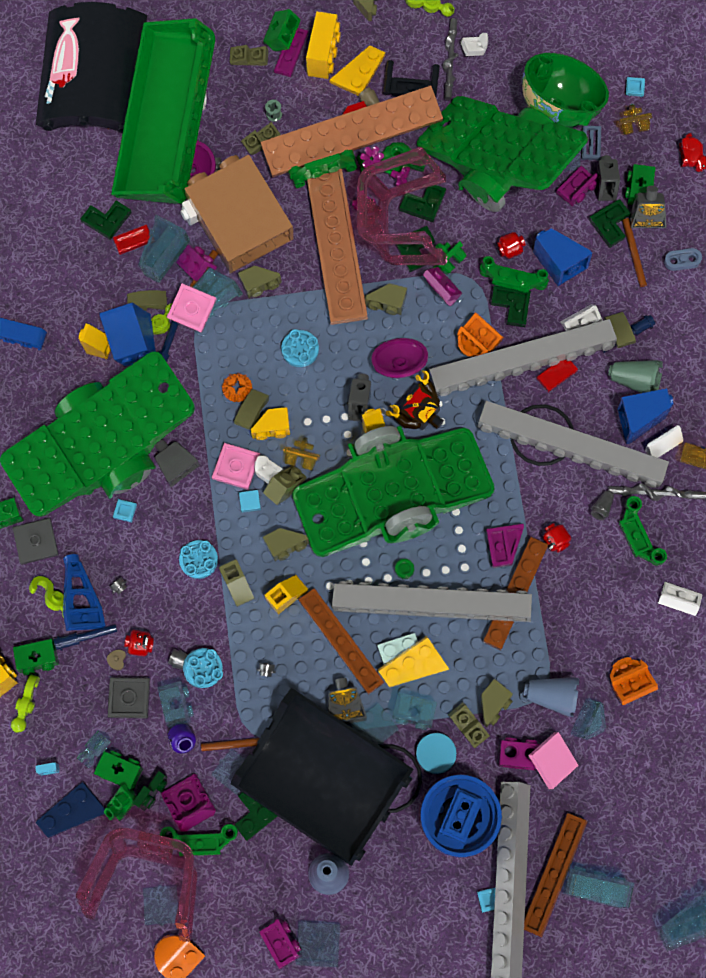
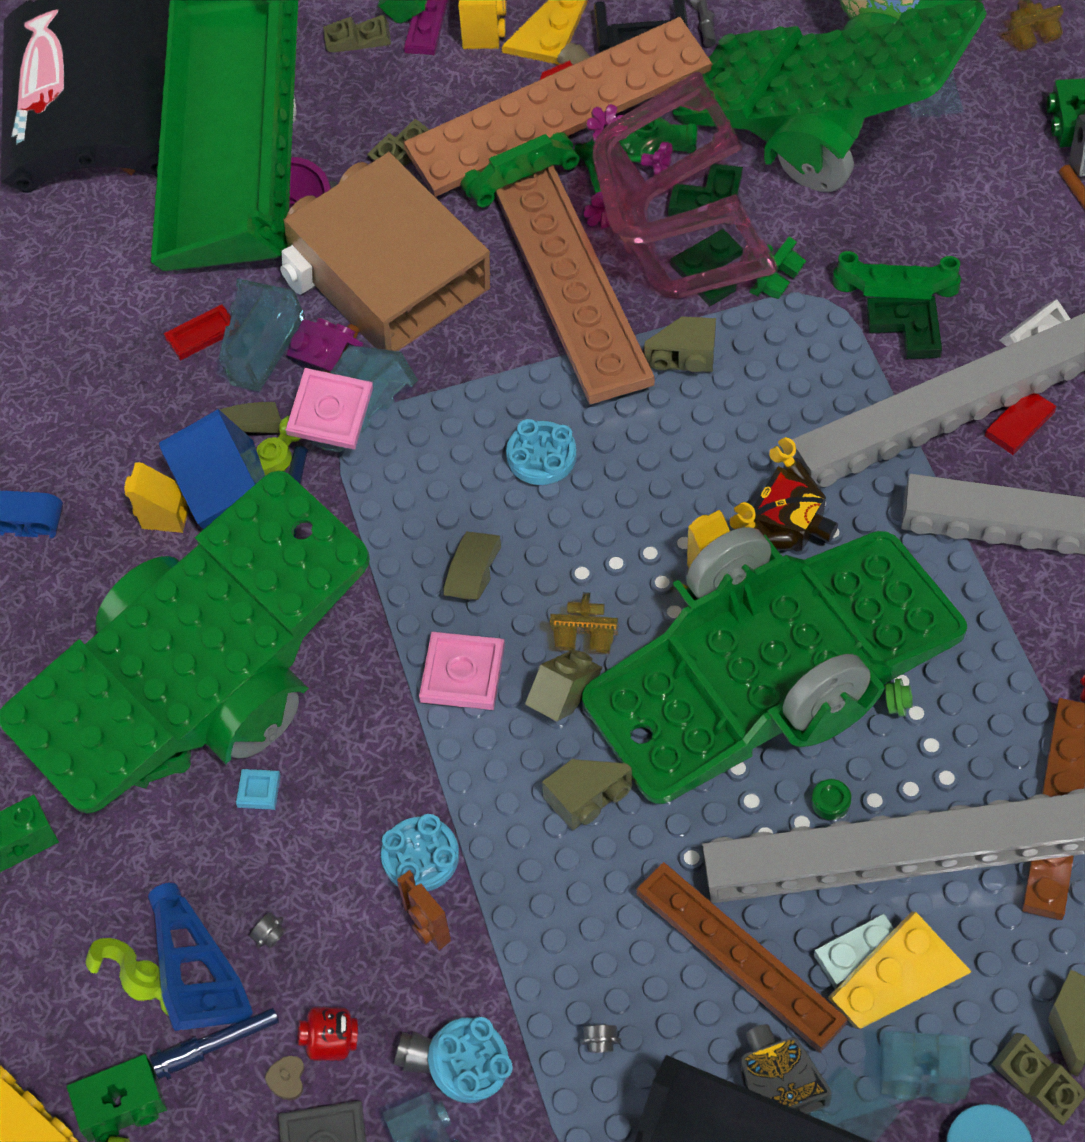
camera: 10 degrees left, 15 degrees down
(35, 541) = (87, 876): dark grey plate -> none
(107, 223) = (151, 313): dark green plate -> none
(174, 461) = (342, 682): dark grey torso -> none
(193, 593) = (425, 911): none -> dark orange plate
(230, 393) = (423, 541): orange gear -> none
(236, 582) = (506, 877): olive slope -> none
(249, 501) = (501, 727): medium azure tile -> none
(258, 279) = (441, 356): olive slope -> none
(266, 469) = (520, 663): white plate -> none
(272, 110) = (409, 97): sand green bush -> none
(272, 424) = (517, 583): yellow slope -> none
(285, 593) = (607, 884): yellow slope -> none
(359, 397) = (675, 497): dark grey torso -> none
(399, 357) = (731, 433): magenta dish -> none
(442, 285) = (777, 310): magenta bracket -> none
(450, 522) = (898, 697): none -> bright green plate
(478, 337) = (862, 378): orange slope -> none
(504, 544) = (1011, 720): magenta wing -> none
(511, 245) = (879, 232): red head -> none
(532, 461) = (1018, 573): black piece -> none
(561, 255) = (974, 228): blue slope -> none
(577, 186) = (968, 130): magenta bracket -> none
(590, 156) = (974, 87): sand blue tile -> none
(606, 222) = (1035, 175): dark green plate -> none
(608, 172) = (1018, 100): dark grey torso -> none

